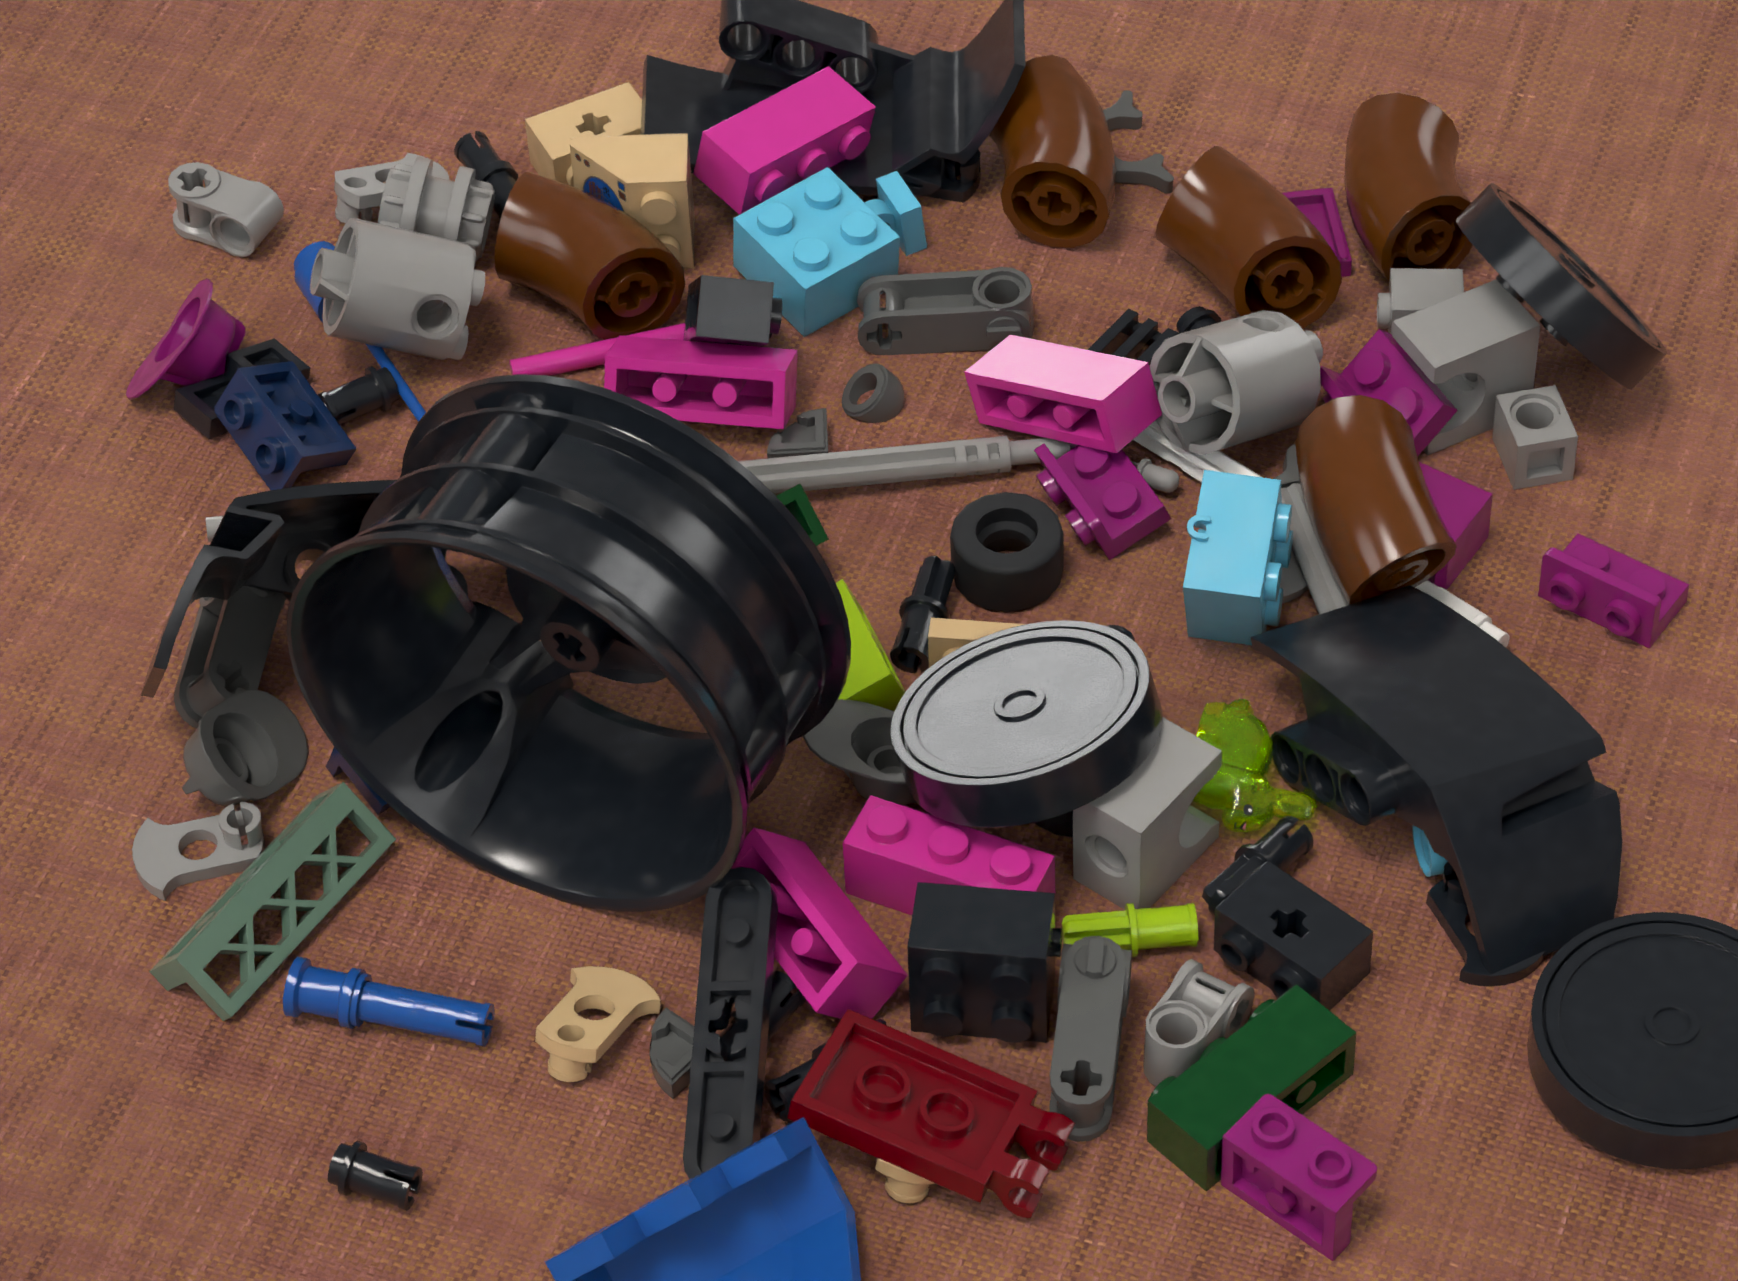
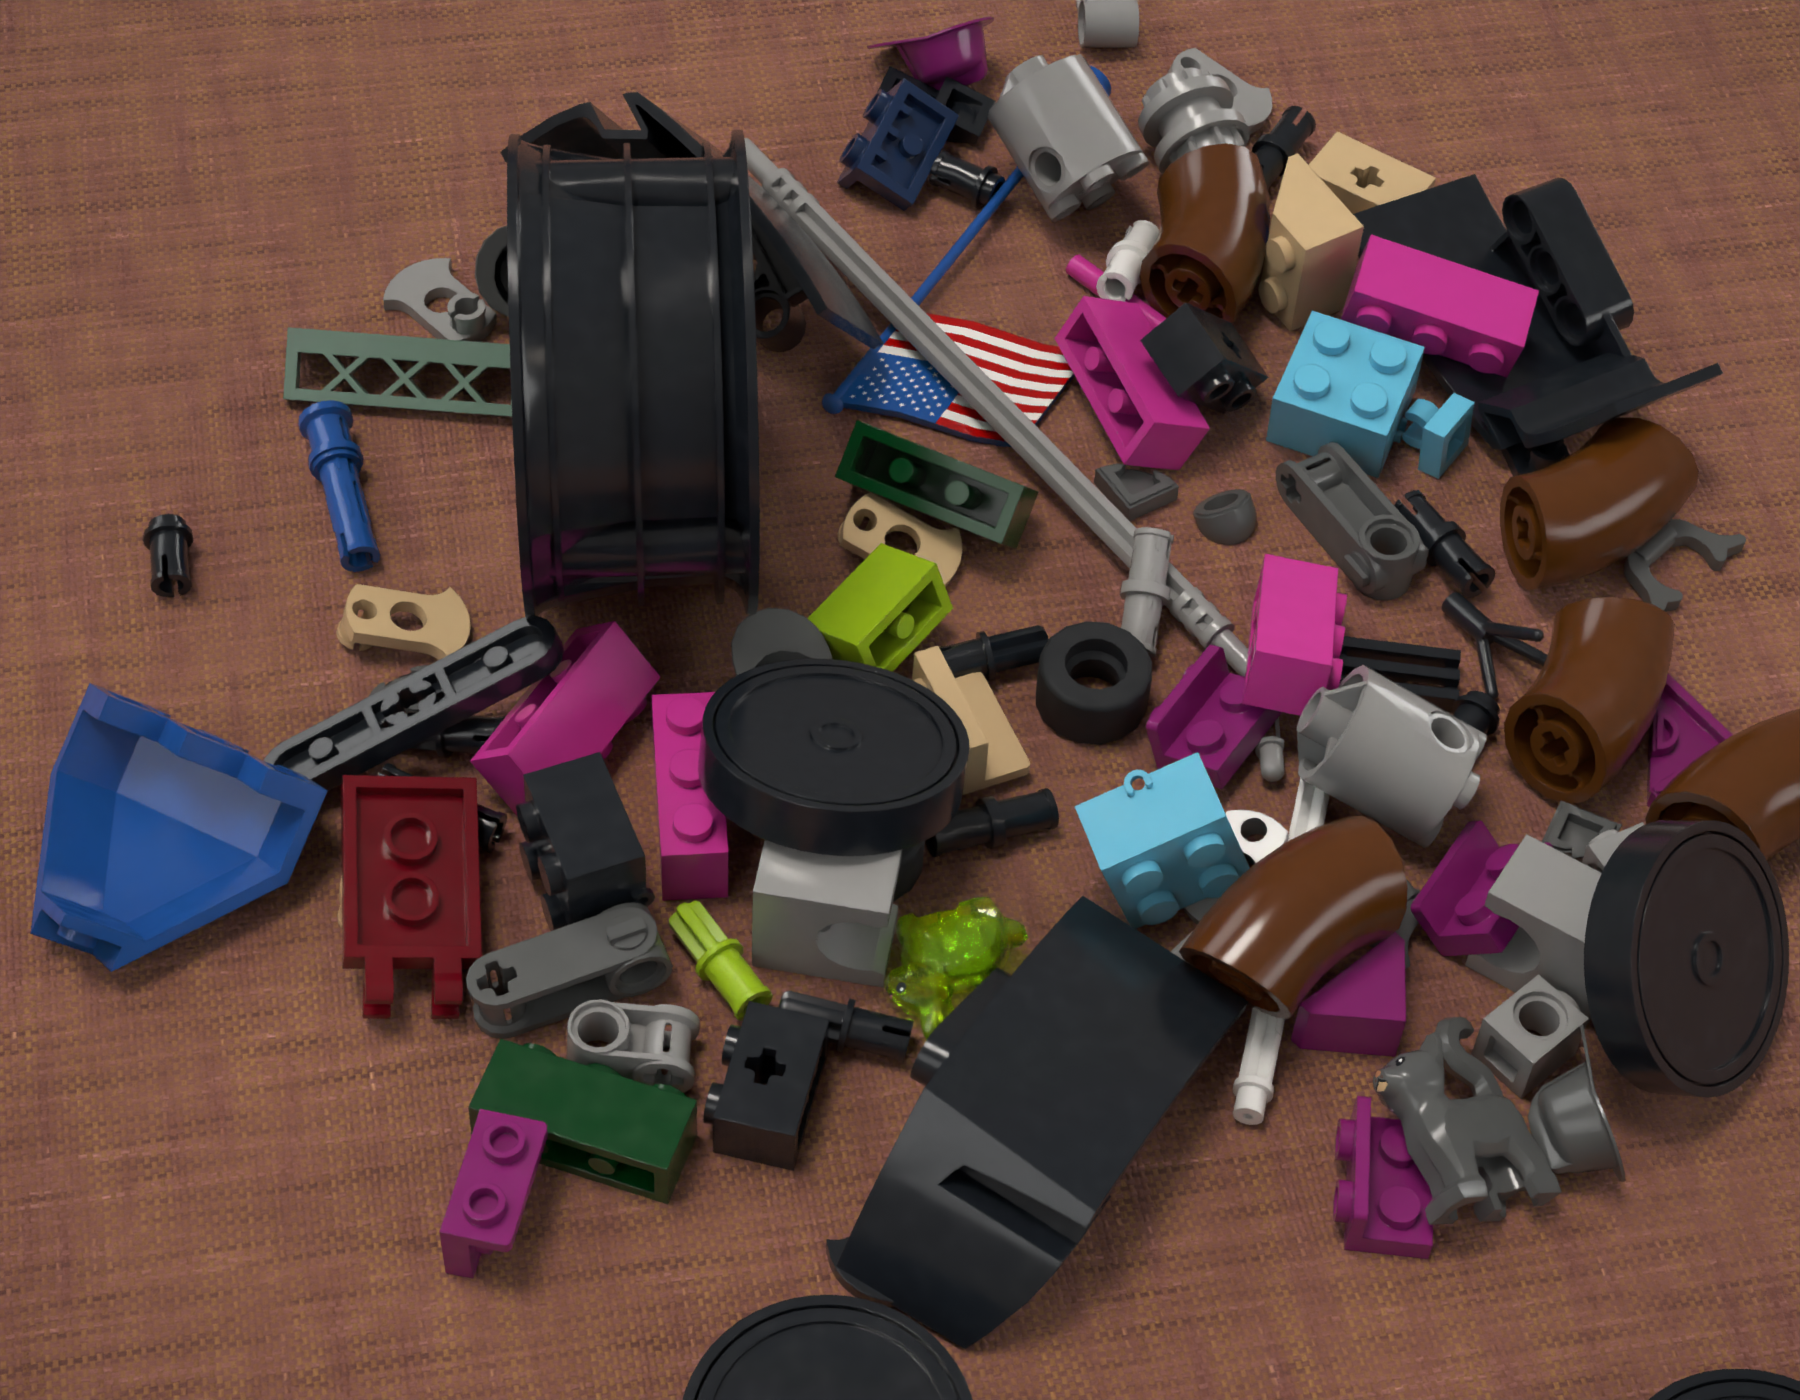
camera: 55 degrees right, 5 degrees up
(555, 326) = (1125, 262): none -> white pin
(933, 466) = (1146, 586): none -> light grey pin
(1040, 265) = (1447, 545): none -> black pin
(1139, 271) = (1487, 632): none -> black plant
(1348, 327) = (1574, 829): none -> dark grey tile
(1605, 510) = (1466, 1146): none -> dark grey animal
(1631, 435) = (1572, 1124): none -> dark grey piece

